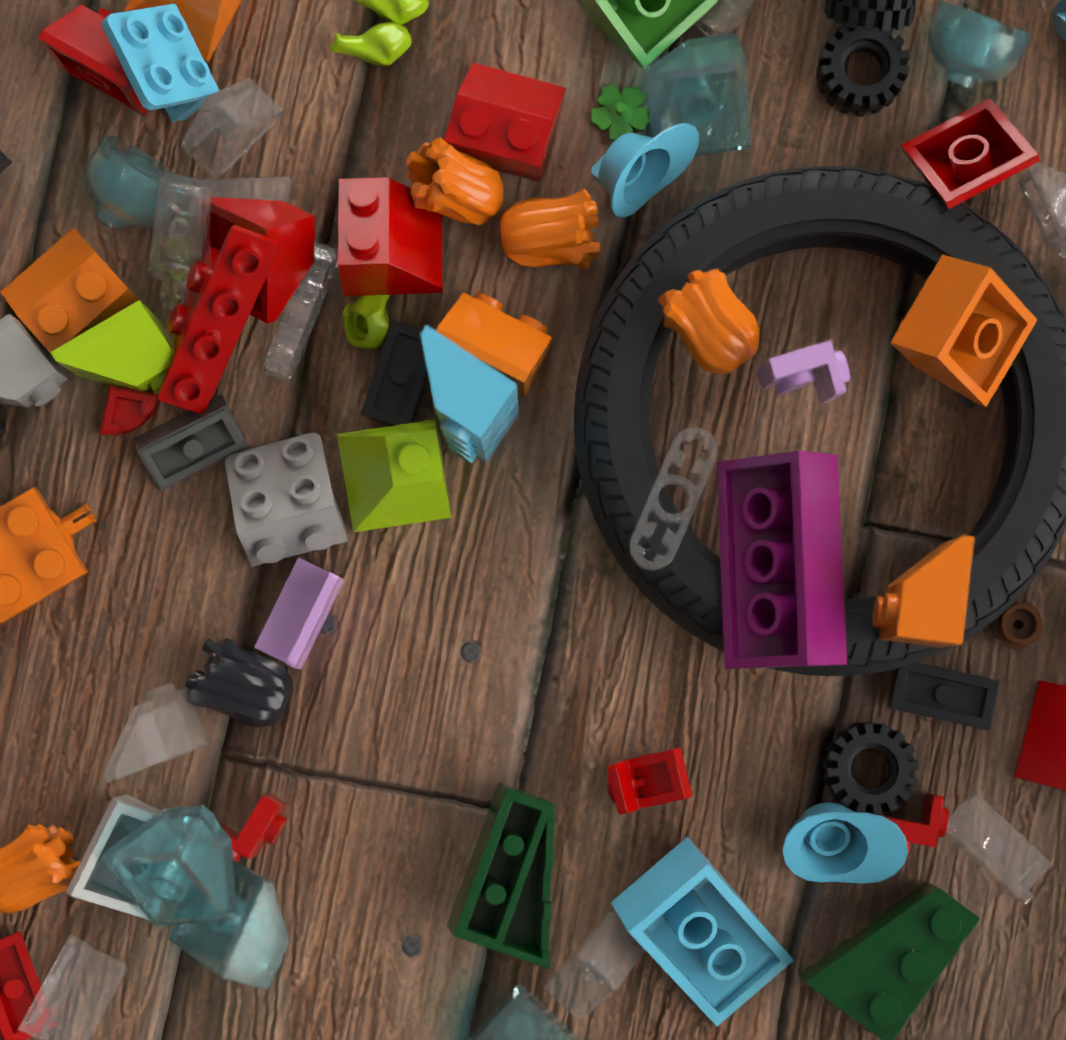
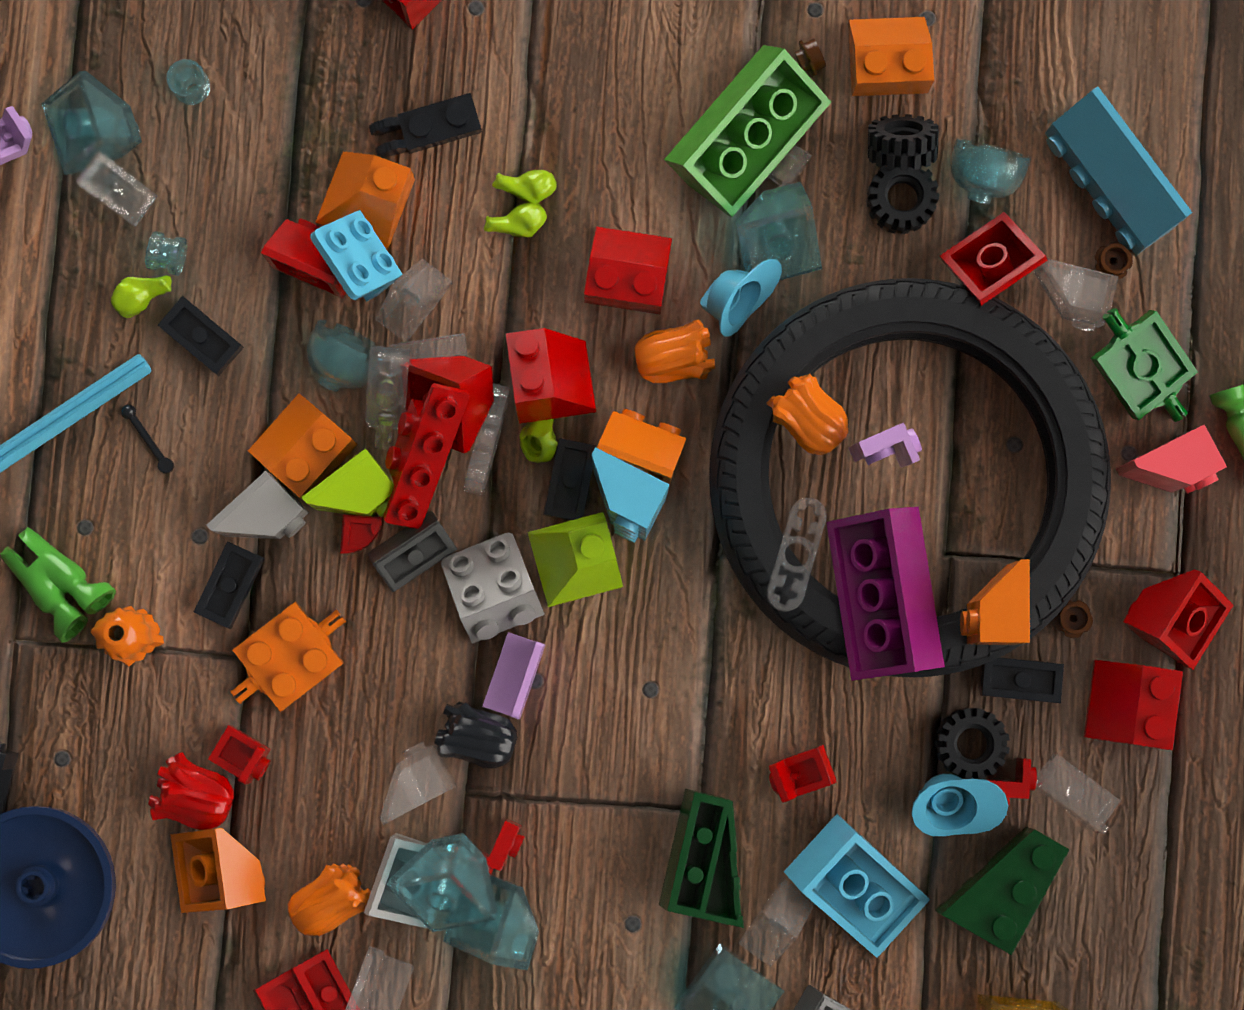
camera: 10 degrees left, 0 degrees up
(454, 183) = (595, 326): orange piece -> none
(620, 112) = (717, 252): bright green plant -> none
(964, 328) = (1004, 397): orange slope -> none

